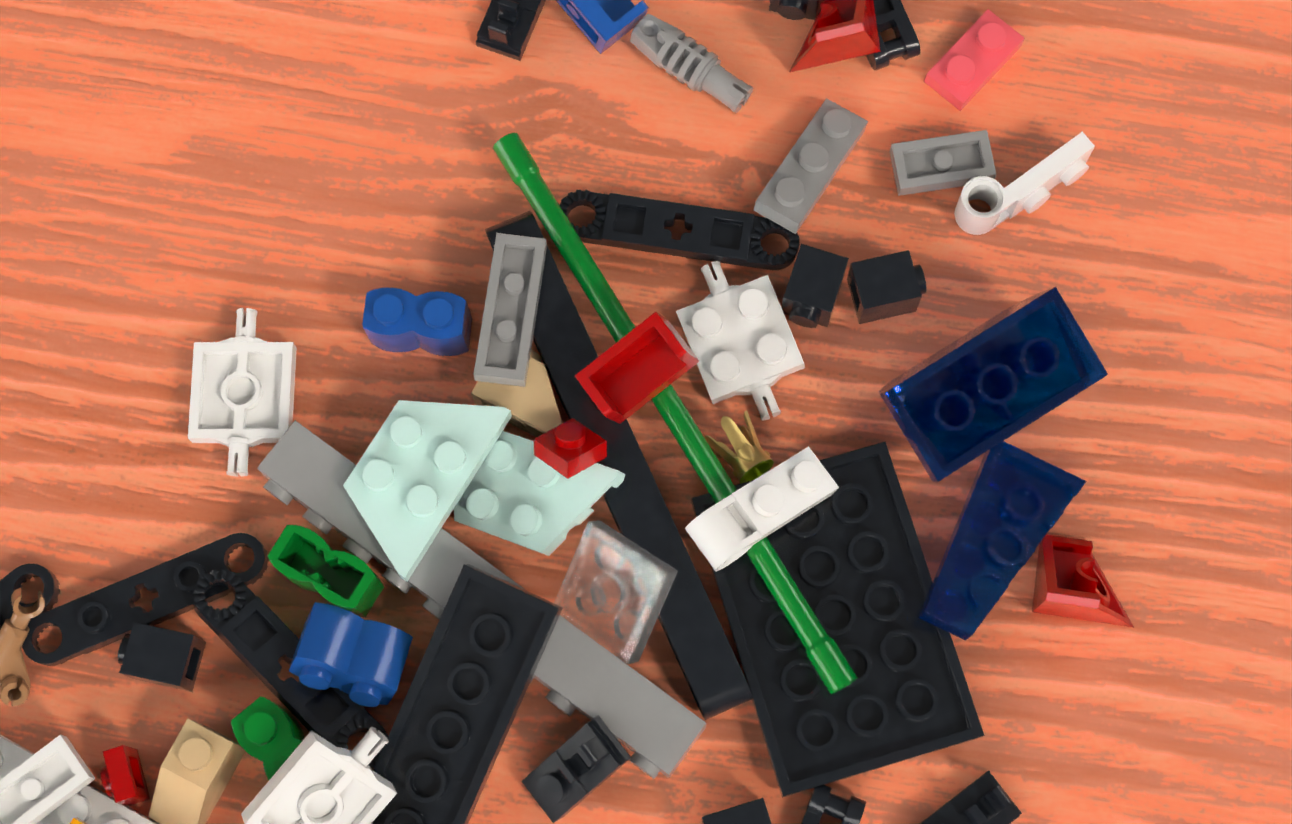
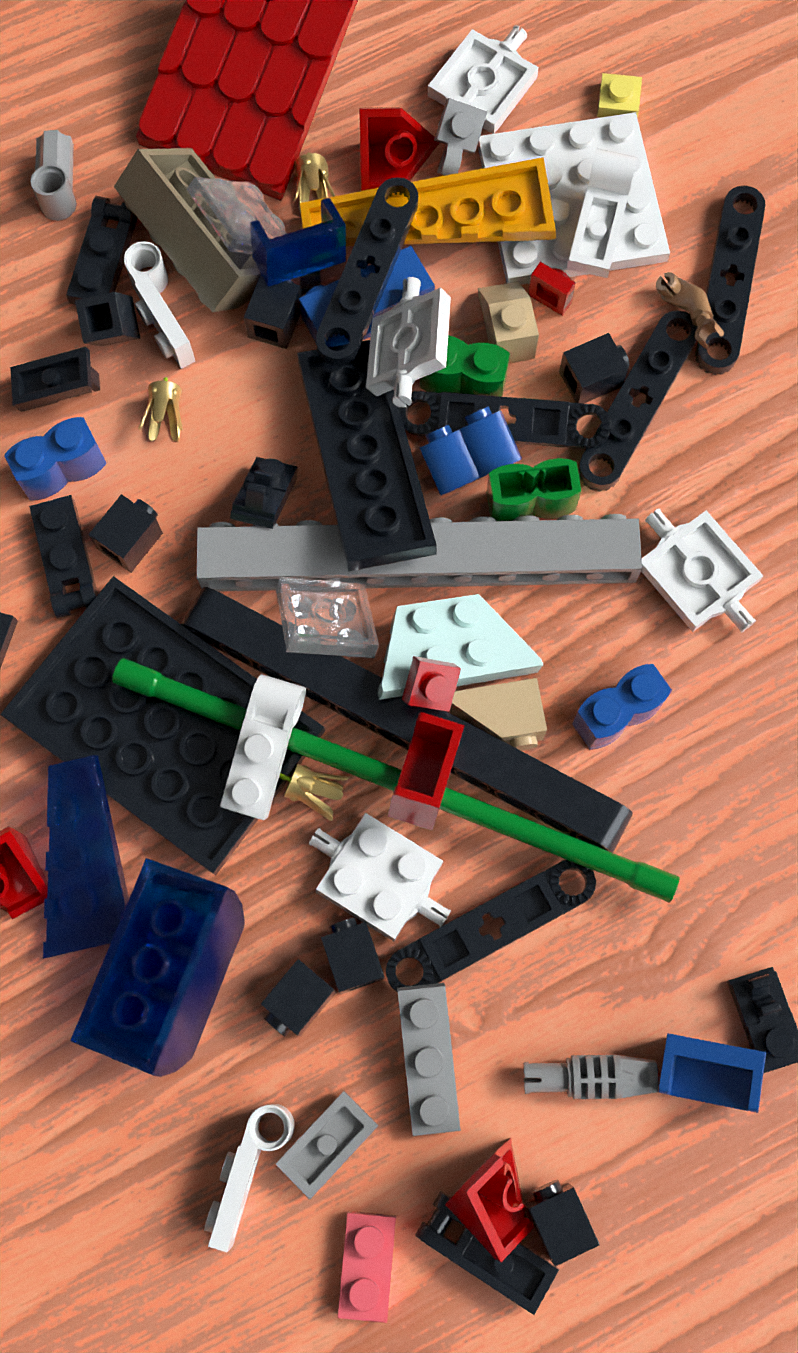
camera: 140 degrees right, 0 degrees up
(420, 472) = (524, 593): light aqua wing -> none
(510, 310) = (557, 753): light grey plate -> none

